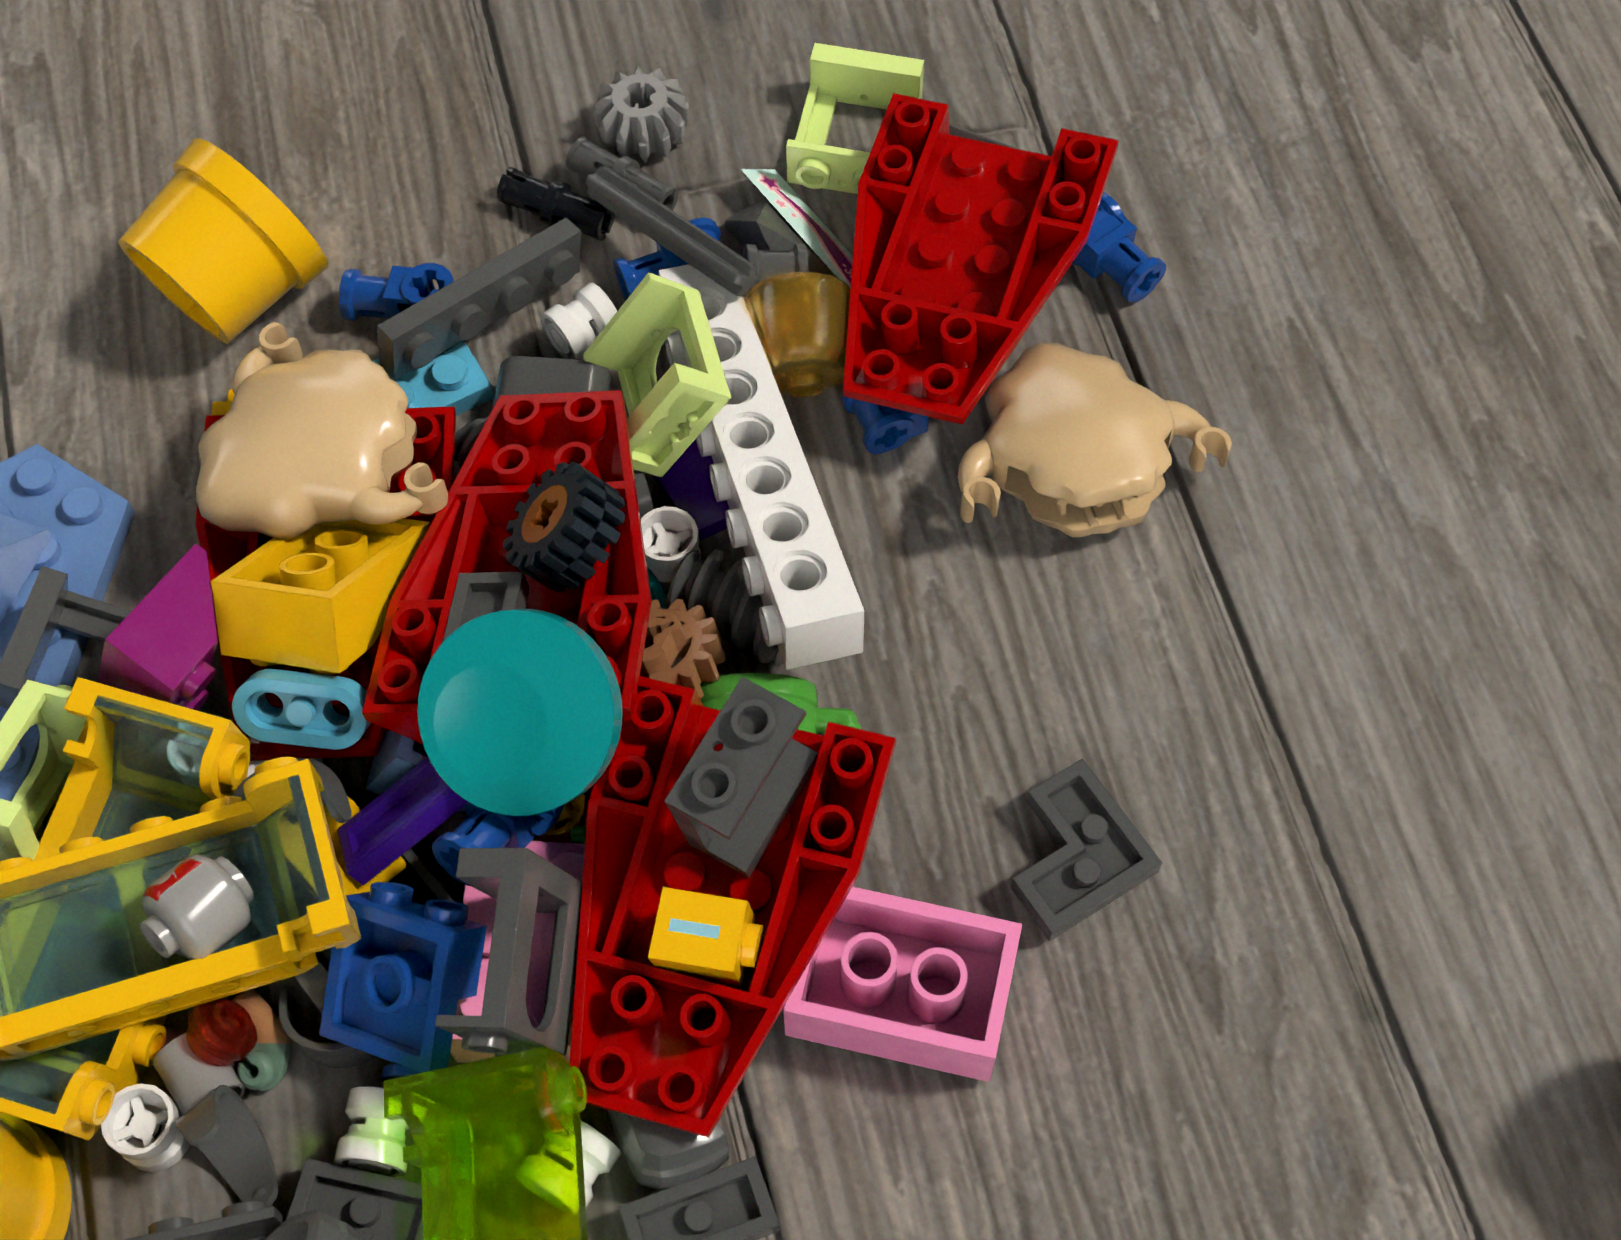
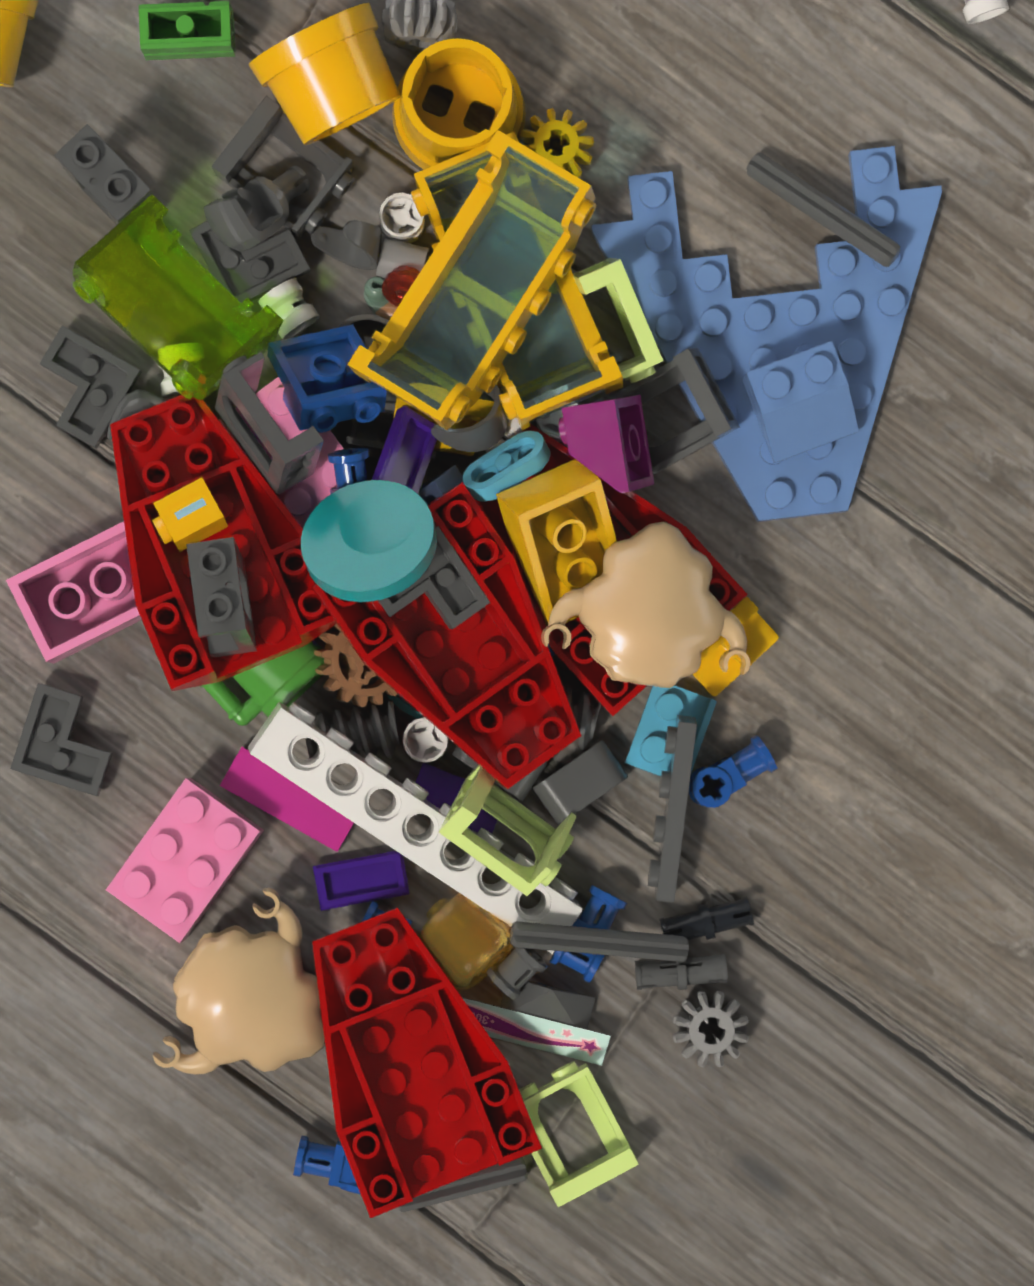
camera: 135 degrees right, 25 degrees up
(196, 907) = (449, 320): light grey head -> none
(221, 243) = (851, 705): yellow piece -> none
(564, 527) = (449, 668): black wheel -> none
(579, 322) = (608, 846): white wheel -> none
(864, 480) = (361, 880): none -> dark purple tile
(891, 652) = (285, 800): none -> dark pink tile
(1035, 620) = (184, 860): none -> bright pink brick

